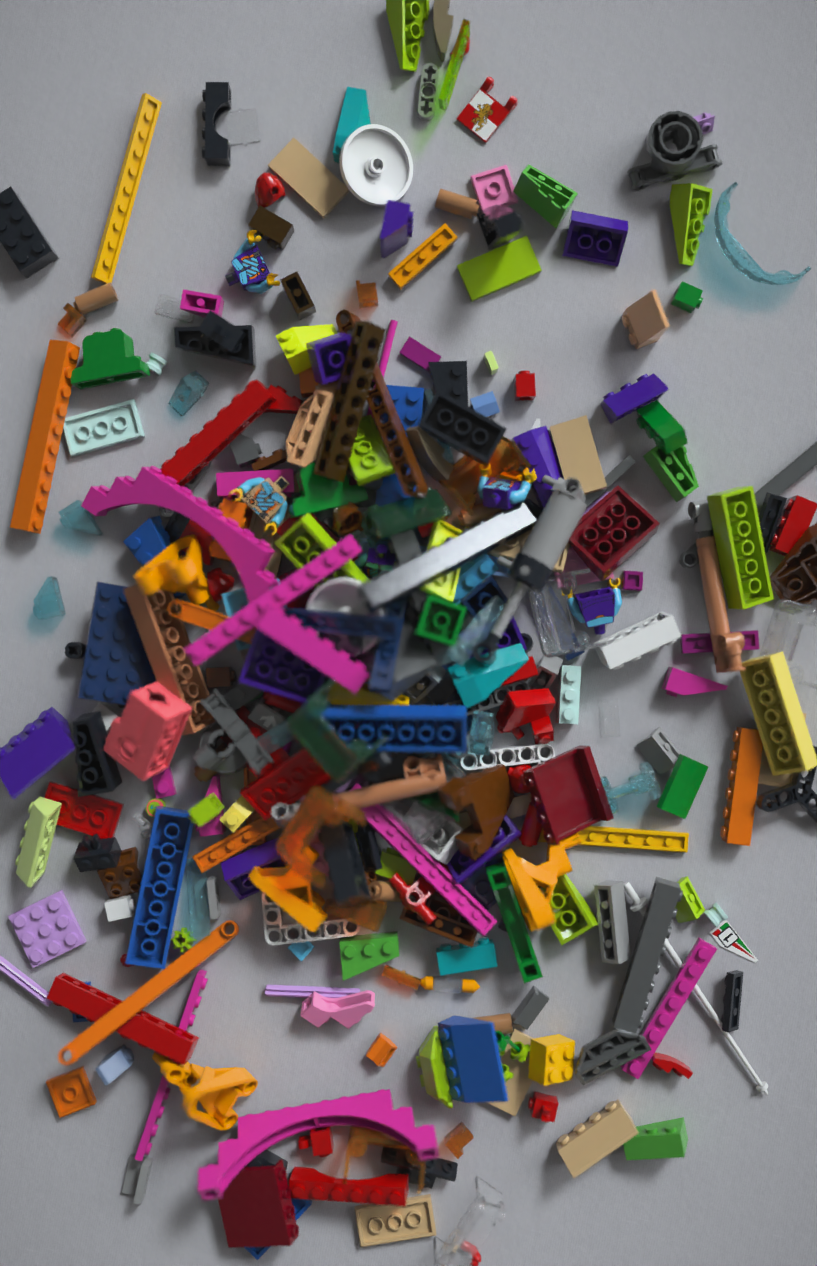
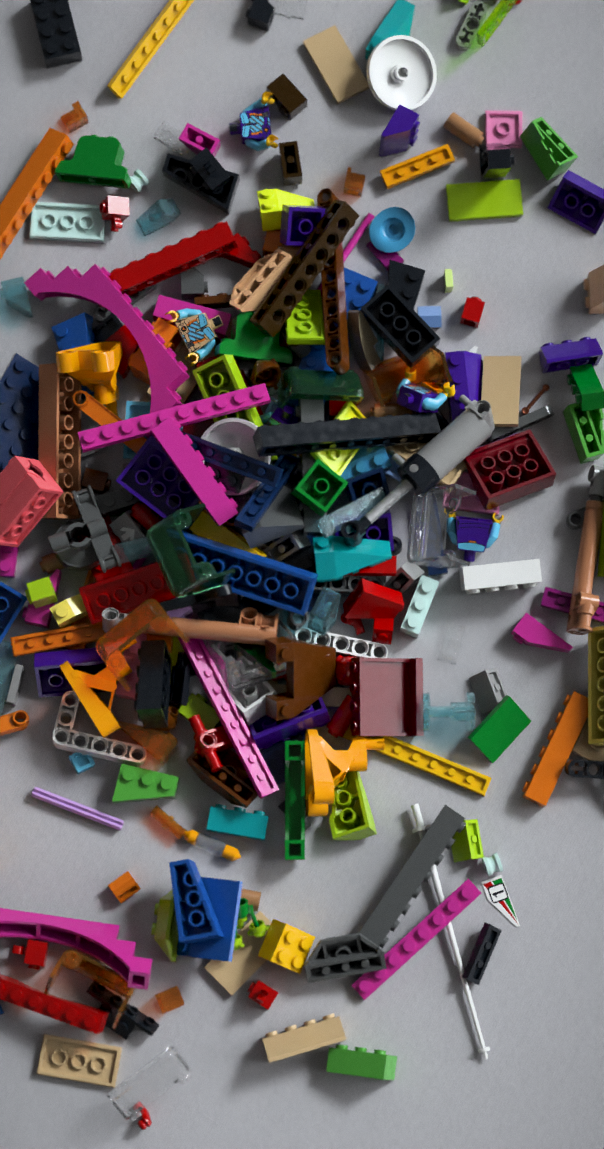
camera: 15 degrees right, 10 degrees down
(95, 299) = (103, 106): medium nougat brick -> none
(144, 401) = (116, 210): none -> brick
(219, 583) = (124, 393): red helmet -> none
(265, 185) = (293, 58): red helmet -> none
(345, 1010) = (104, 833): bright pink arch -> none
(383, 892) = (181, 730): medium nougat brick -> none
(420, 329) = (392, 230): none -> dark azure hat
(455, 1062) = (192, 905): none -> blue wedge
(484, 113) = (517, 61): flag -> none
(529, 1008) = (282, 895): dark grey panel -> none
(606, 466) = (525, 410): none -> copper hinge
(612, 922) = (389, 835): light grey brick -> none
(632, 580) = (515, 523): magenta tile -> none
(668, 1063) = (395, 991): red slope -> none

